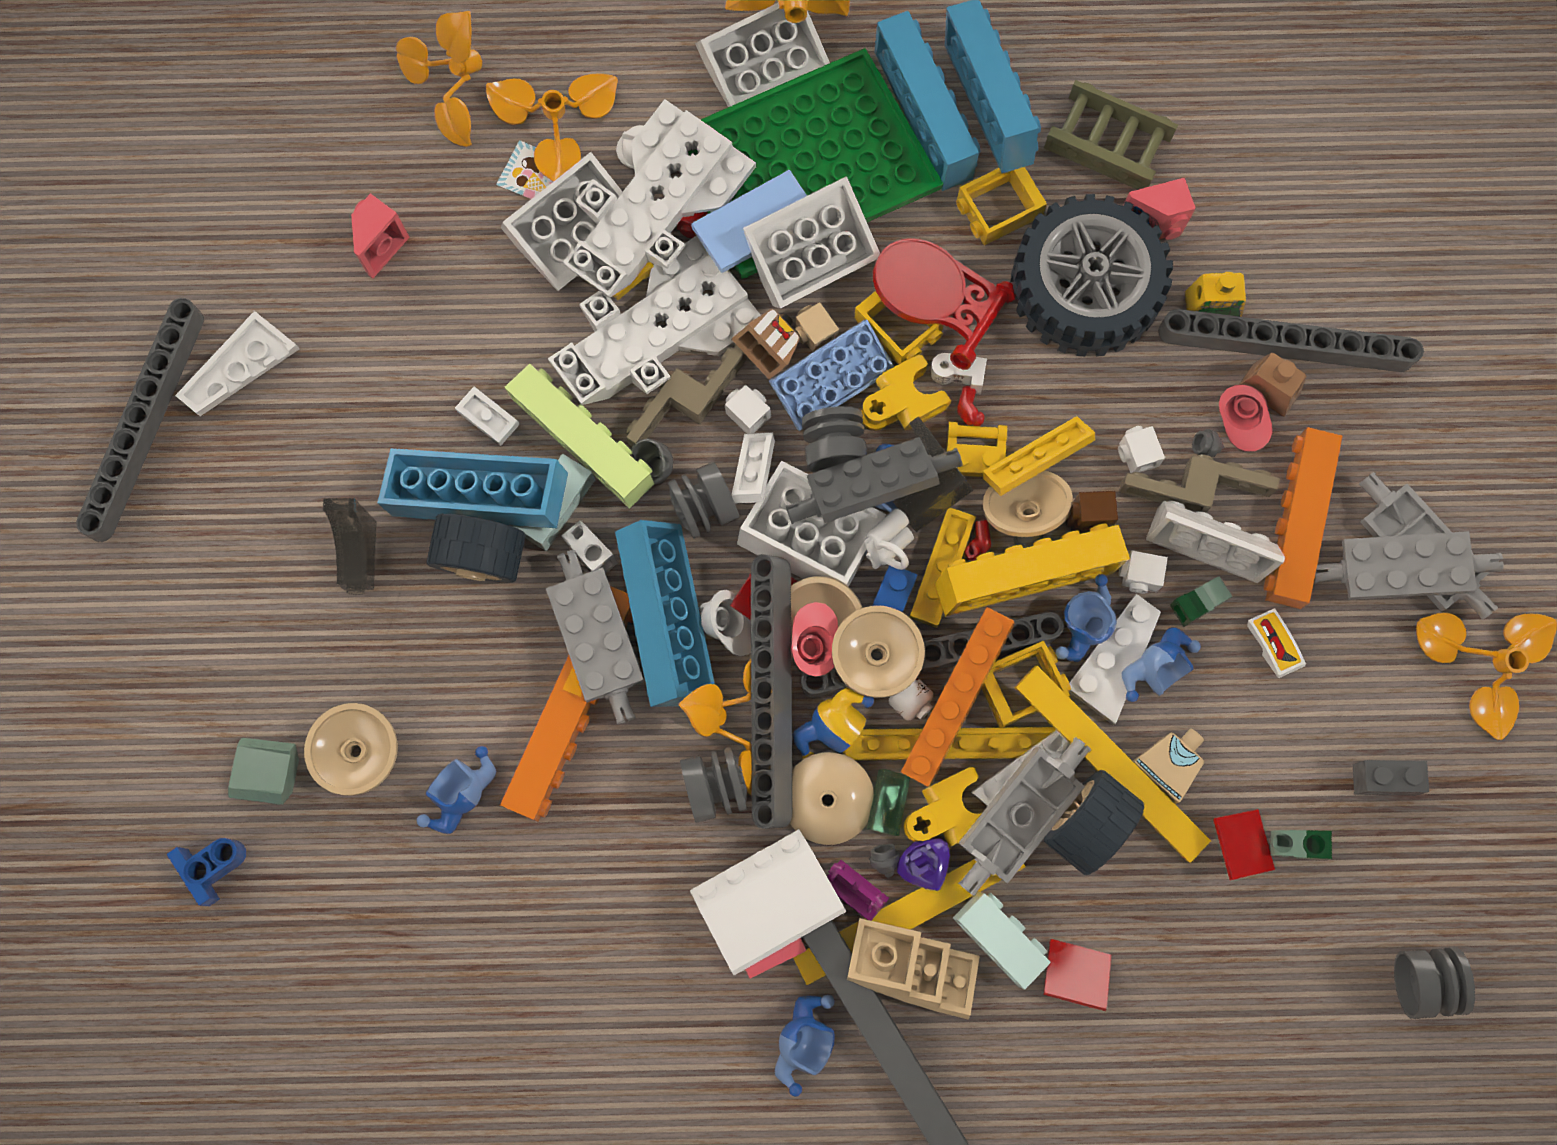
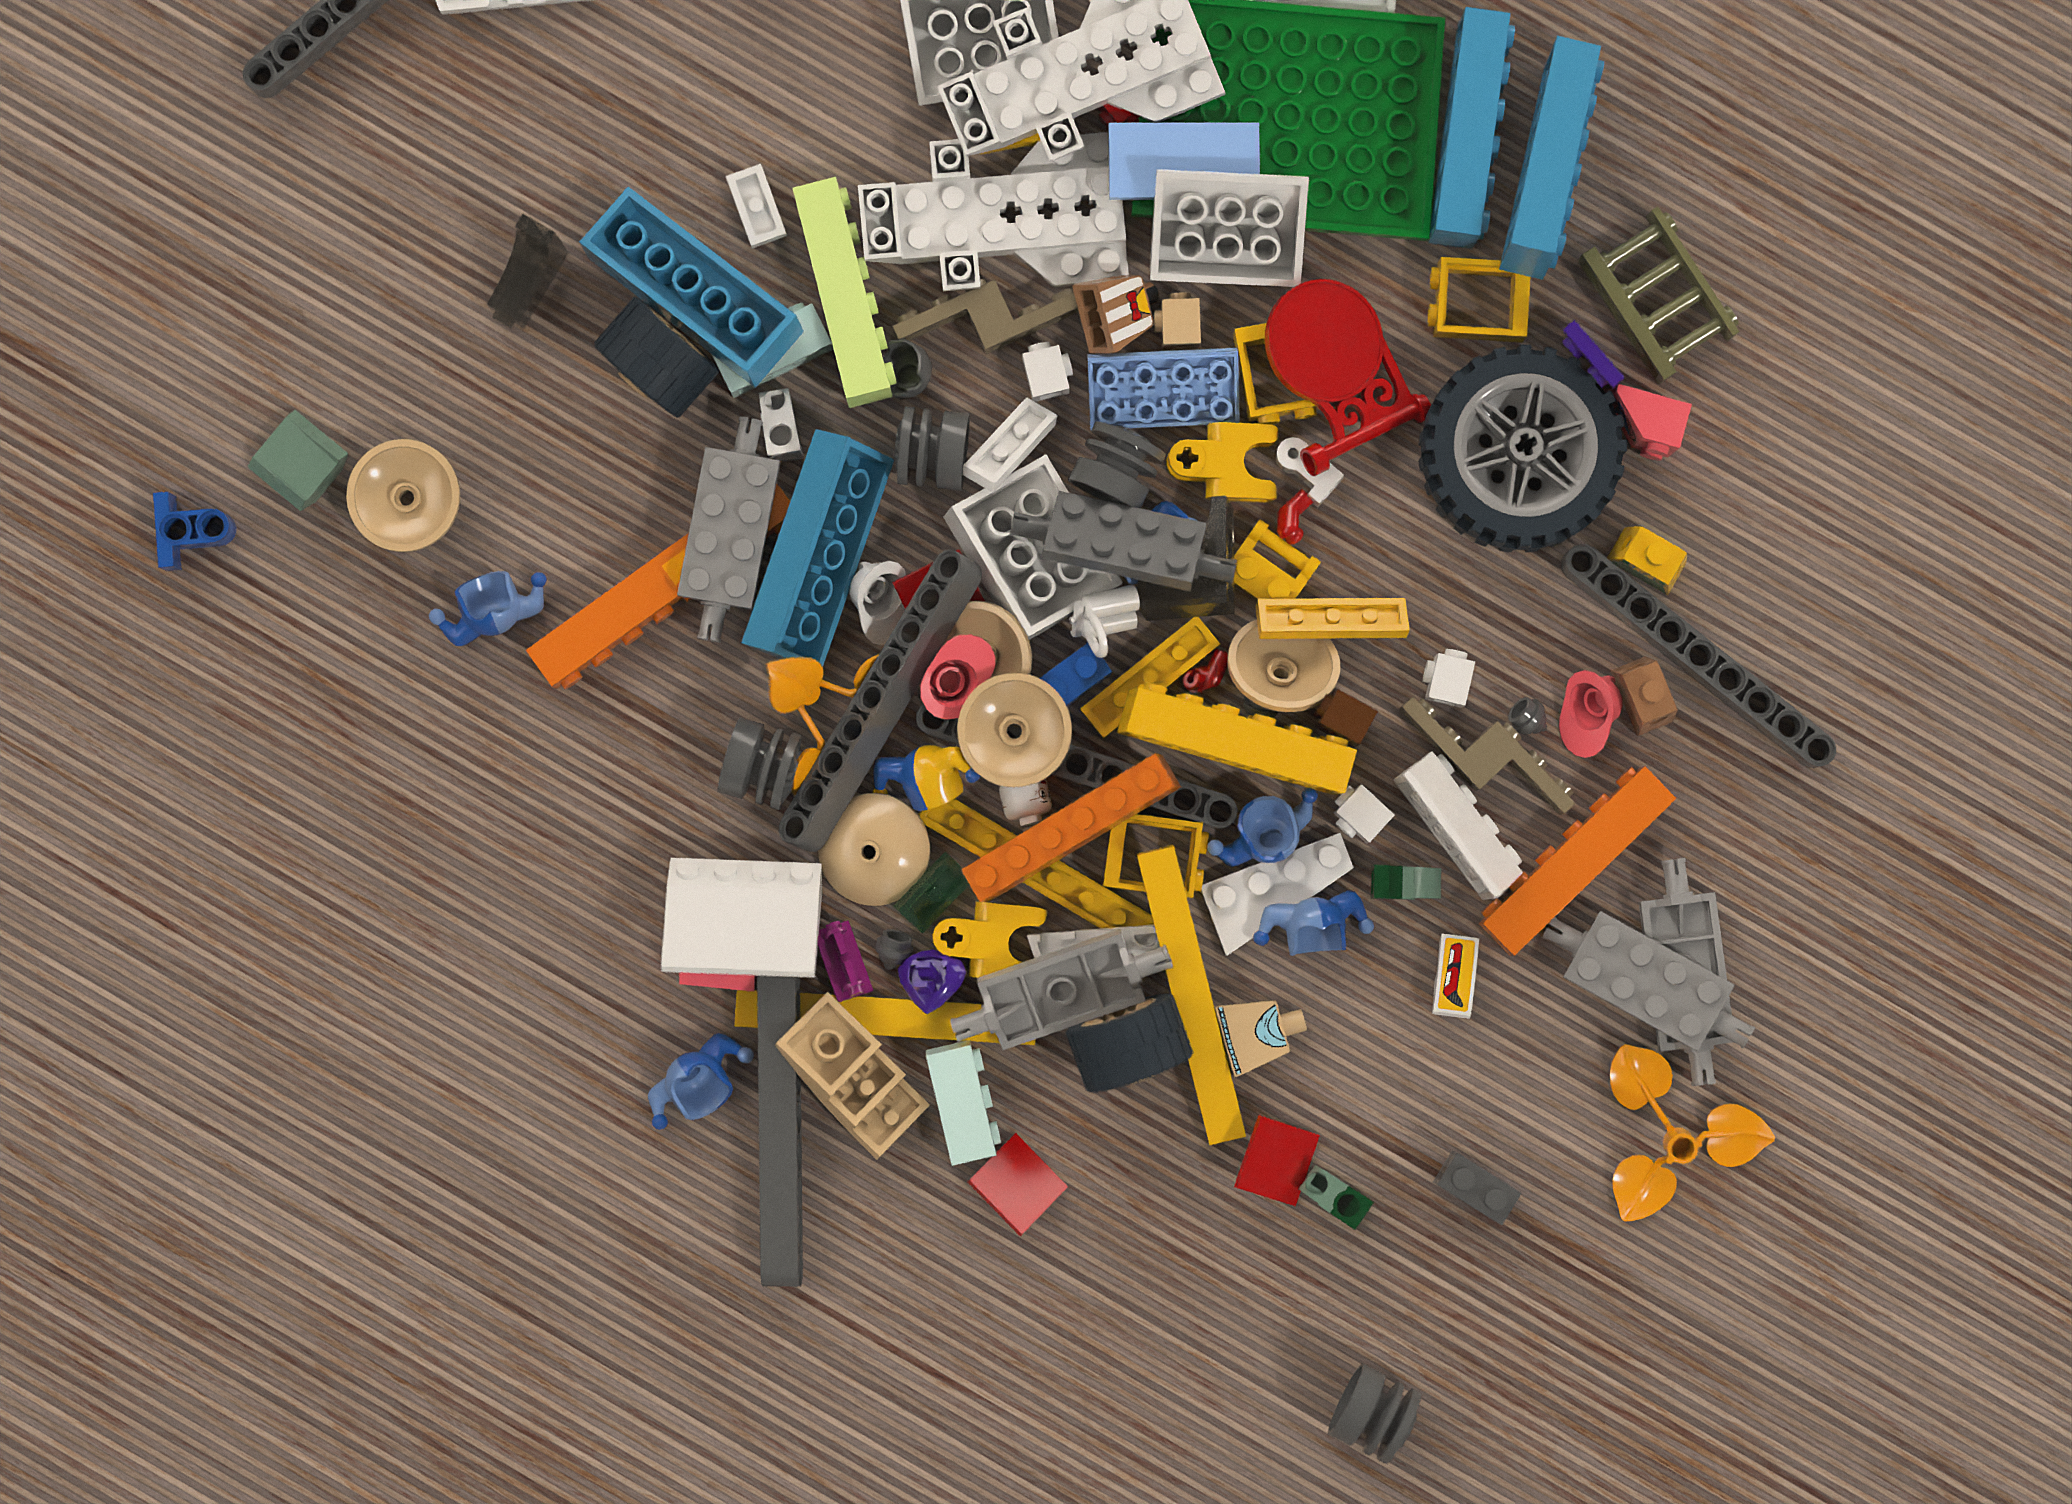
camera: 30 degrees right, 10 degrees up
(1099, 181) = (1582, 345): none -> dark purple plate

